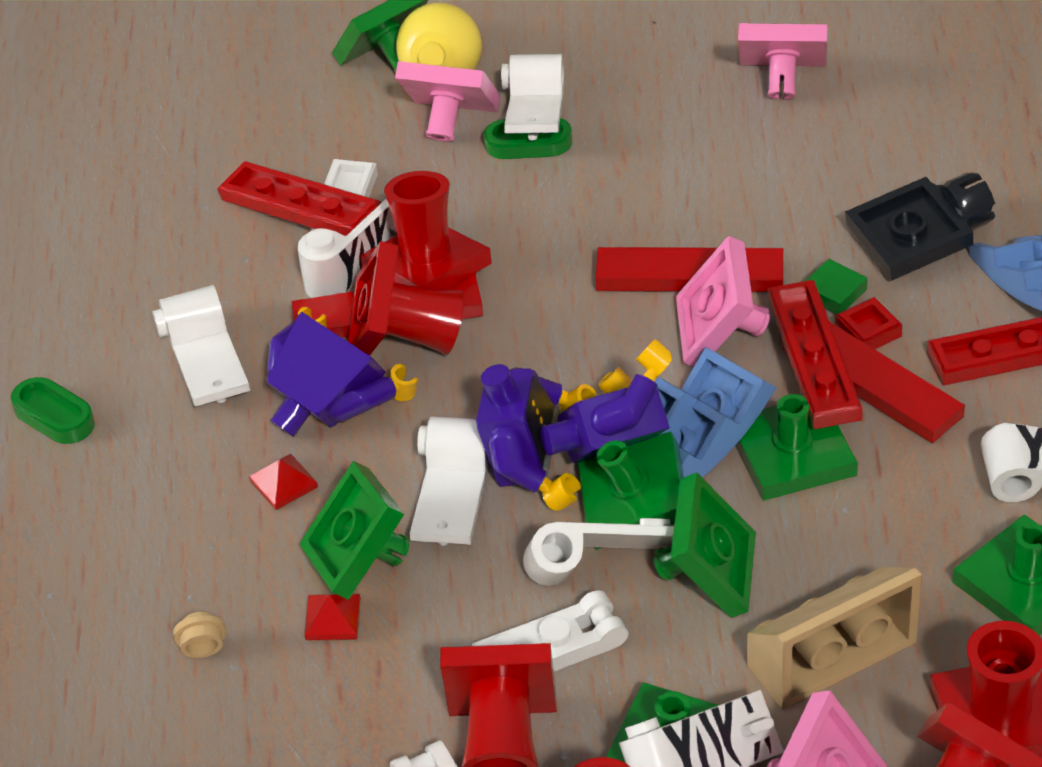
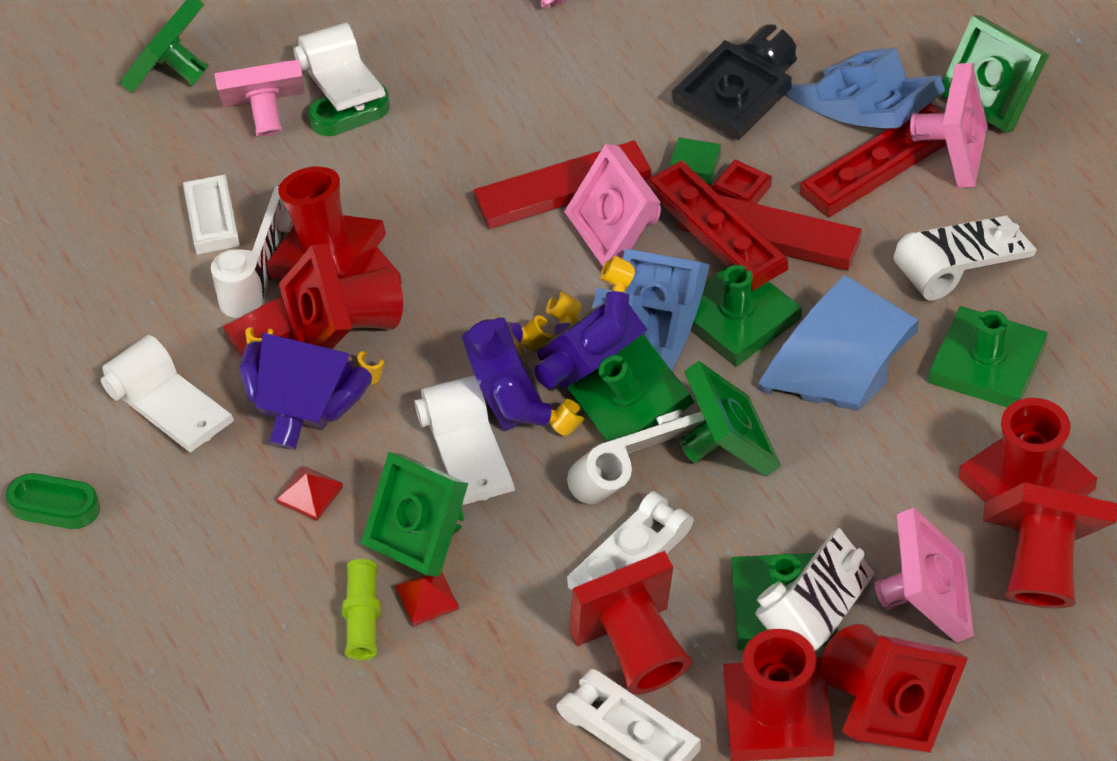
camera: 25 degrees left, 5 degrees up
(199, 634) = (322, 655): tan plate -> none
(261, 605) = (361, 609): none -> lime pin
(296, 198) = (176, 230): red tile -> none
(440, 37) = (227, 41): light yellow brick -> none
(836, 634) = (869, 457): tan slope -> none
(870, 513) = (841, 348): none -> medium blue slope

